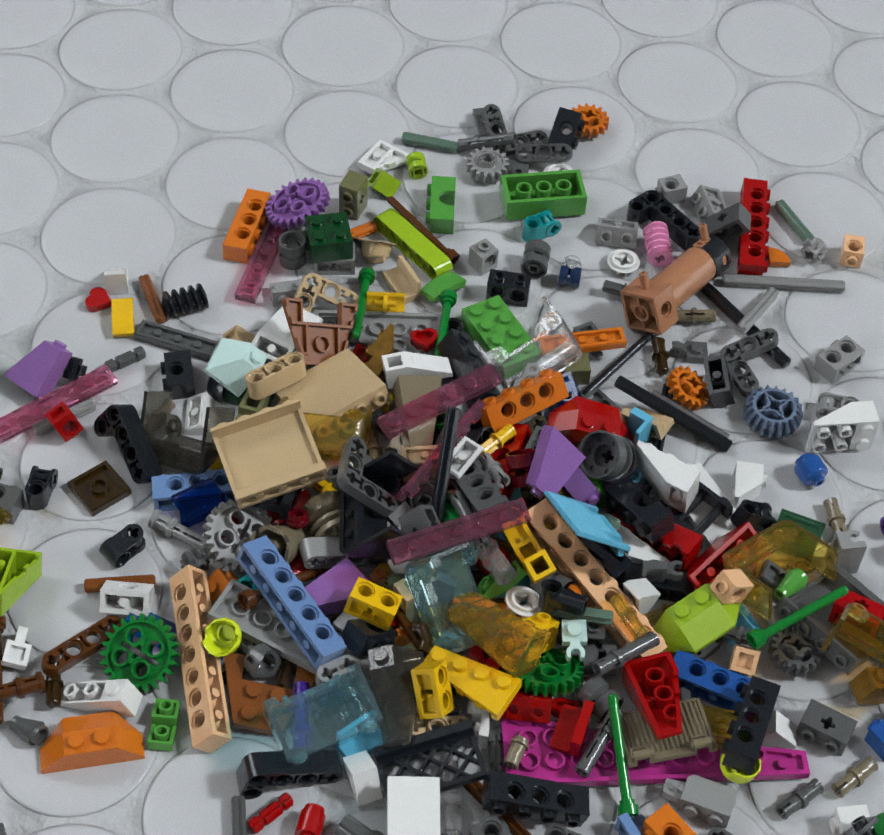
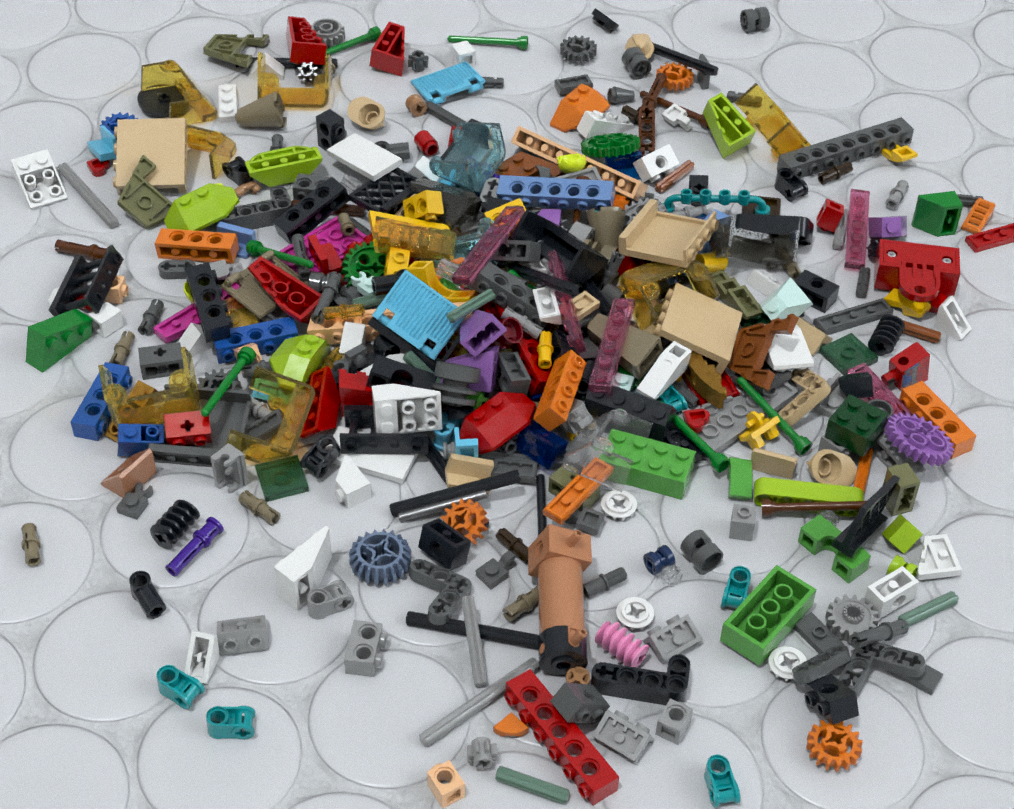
camera: 140 degrees right, 5 degrees down
(52, 789) = (567, 85): none -> dark grey plate
(86, 315) = (916, 269): none -> red brick
(111, 474) = (724, 198): none -> teal bar
(164, 724) = (555, 134): bright green slope -> none
(215, 262) = (908, 367): none -> red torso
(227, 313) = (848, 353): none -> clear green tile
(270, 275) = (857, 384): none -> black brick
(276, 375) = (745, 305): tan beam -> none
(297, 518) = (611, 235): dark red plate -> none
(353, 483) = (596, 243): dark grey beam -> none
(415, 191) = (867, 521): none -> black fence
(447, 154) = (891, 591): none -> white brick
(510, 286) = (691, 510): black brick -> none
(538, 487) = (470, 306): none -> sand green axle
(678, 149) = (722, 785): none -> teal piece
(731, 586) = (289, 363): light nougat brick -> none
(792, 583) = (252, 420): bright green cone -> none
(810, 470) = (306, 524): blue head -> none

